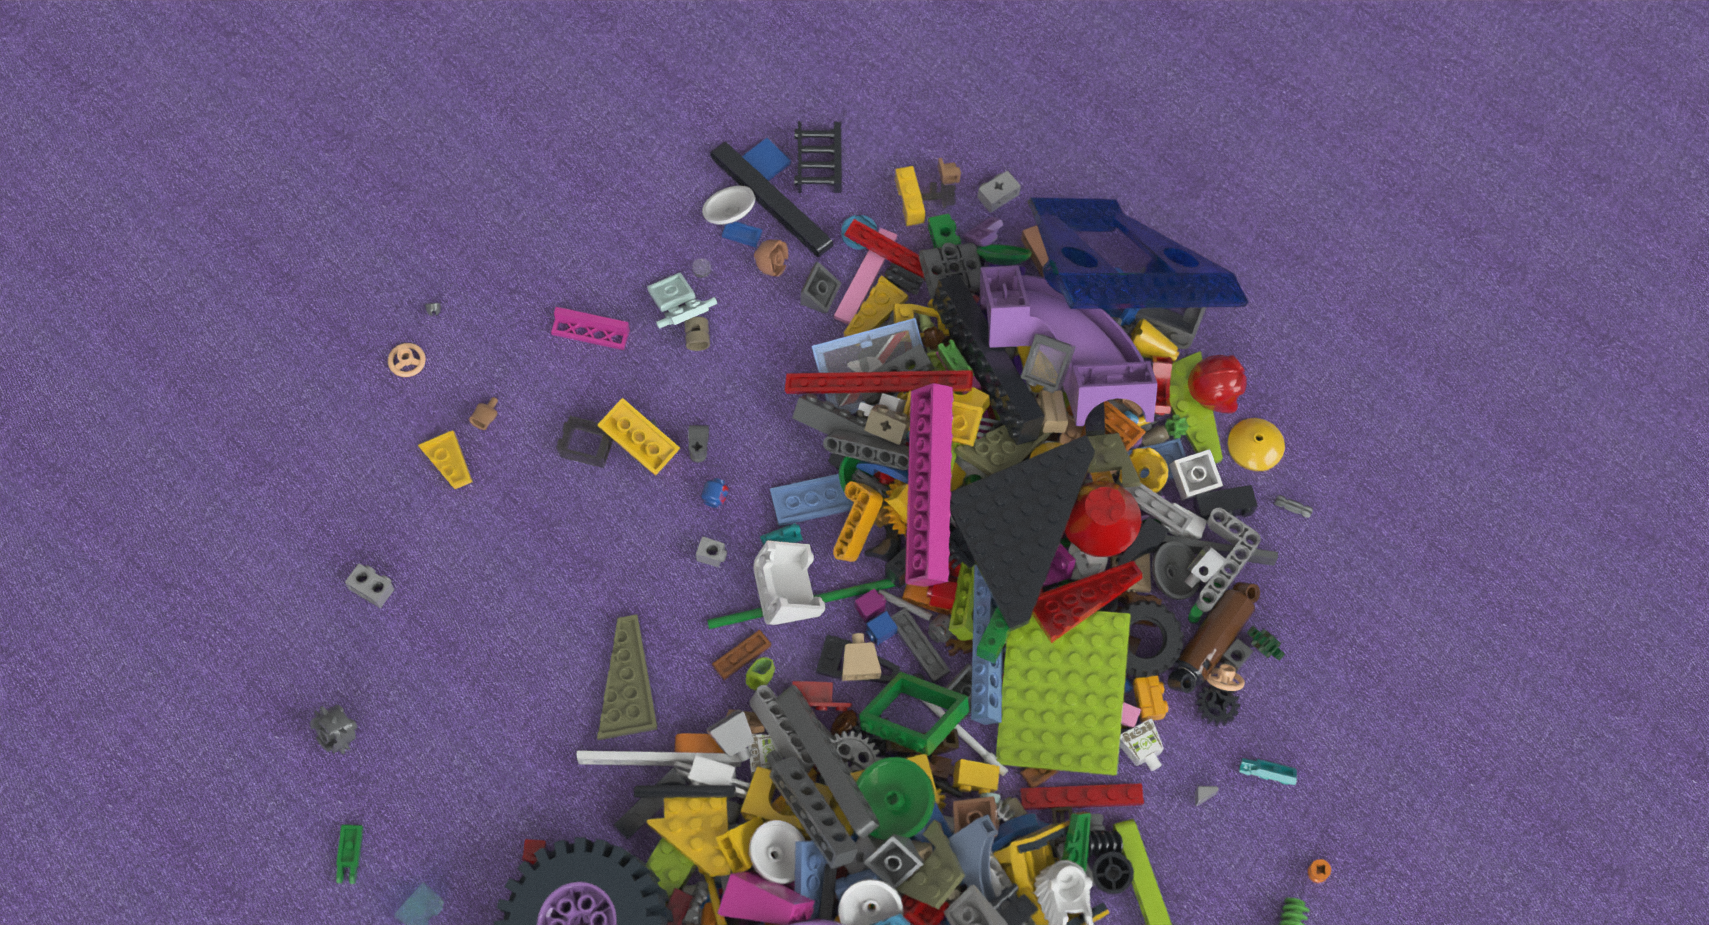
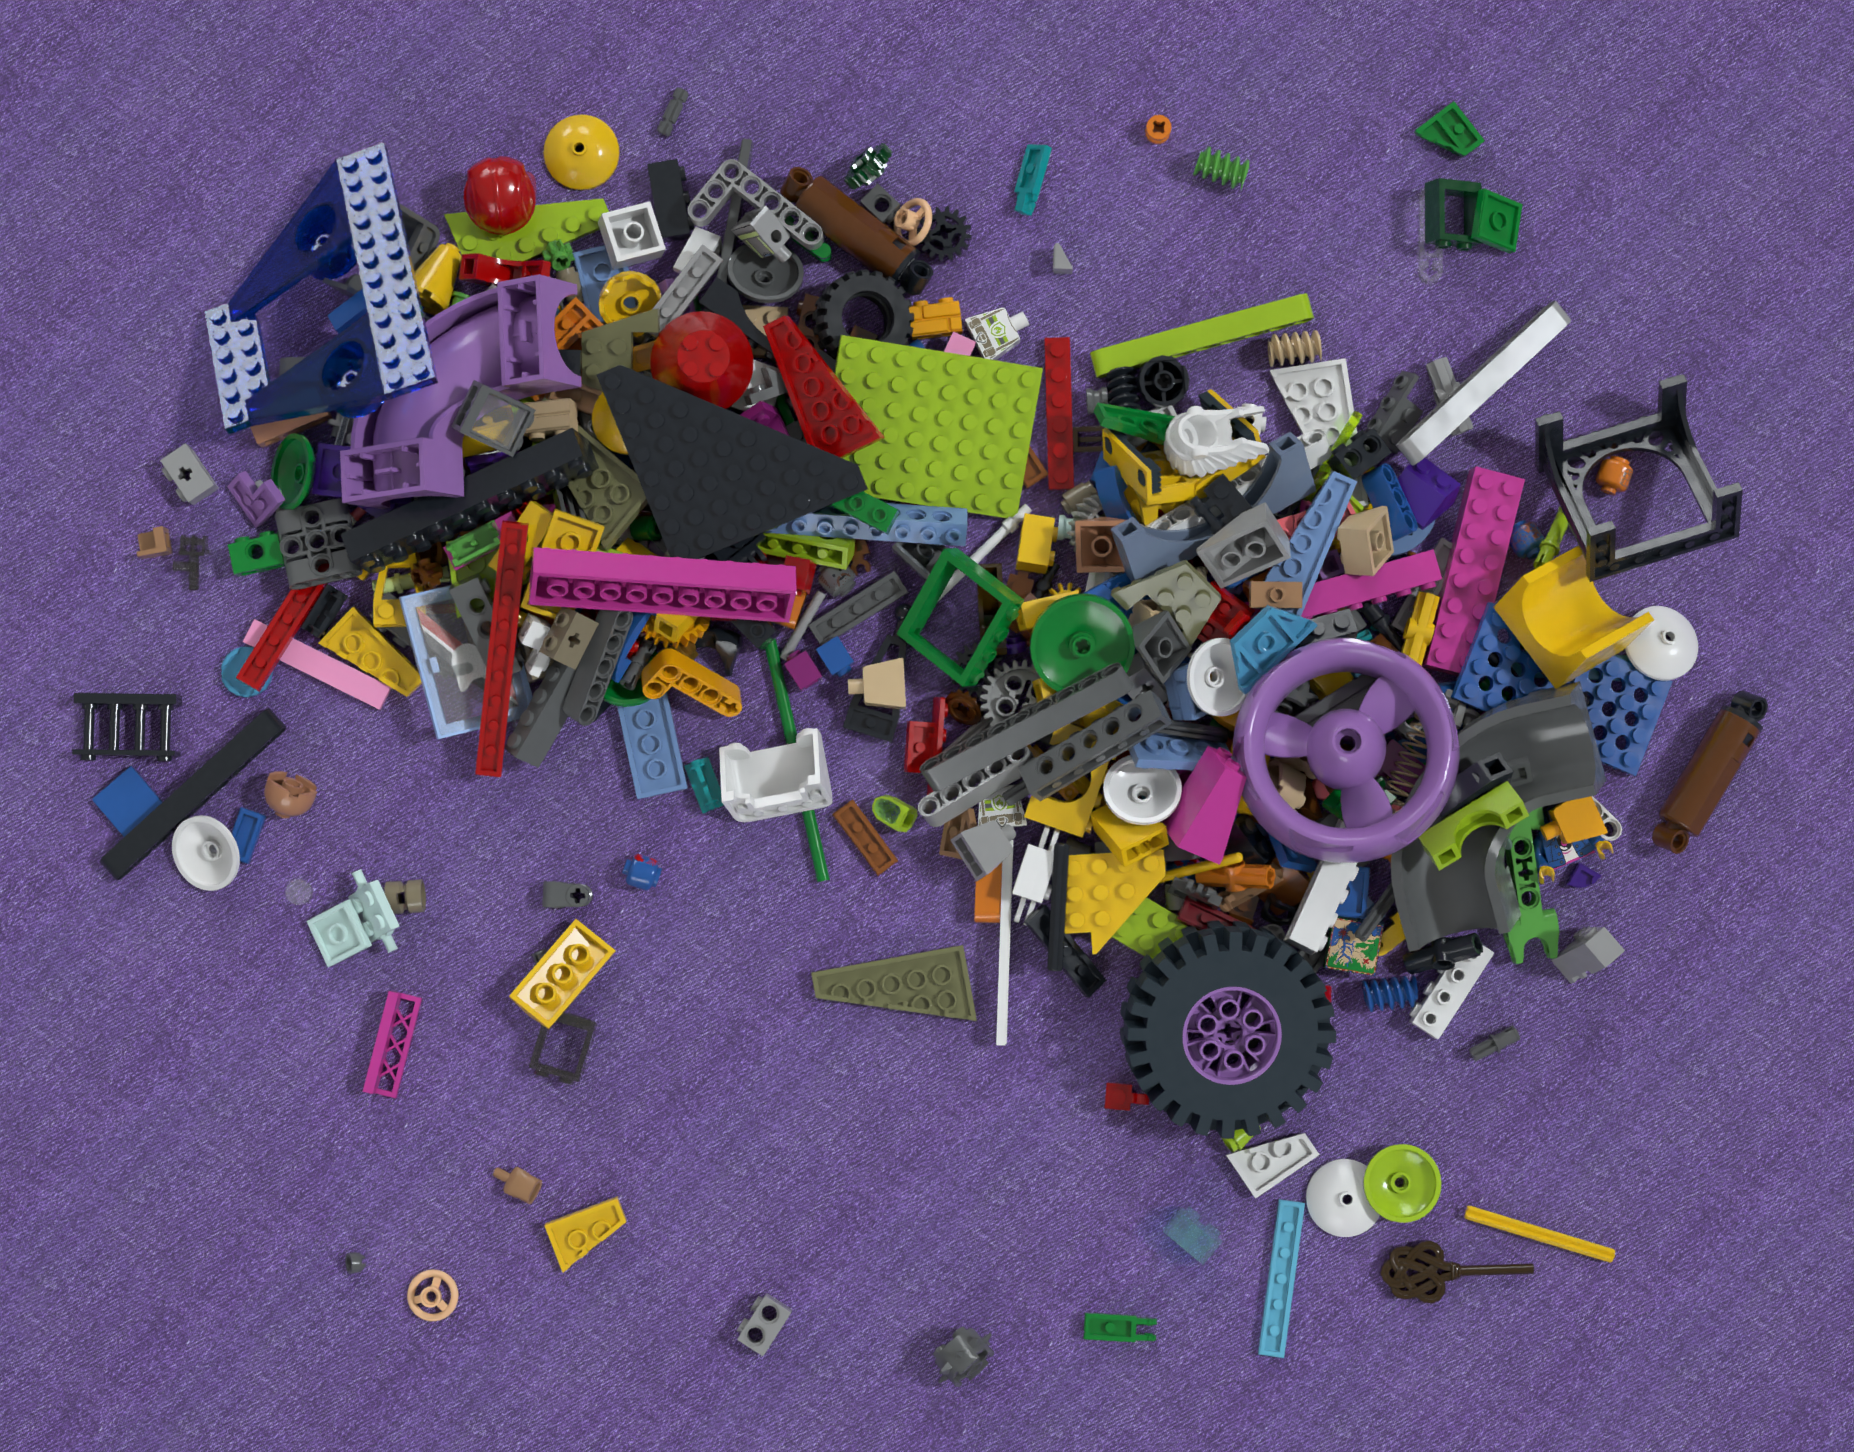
camera: 80 degrees left, 20 degrees up
(705, 546) = (715, 882): light grey brick -> none
(819, 289) = (339, 726): dark grey slope -> none
(911, 197) = (195, 597): yellow arch -> none

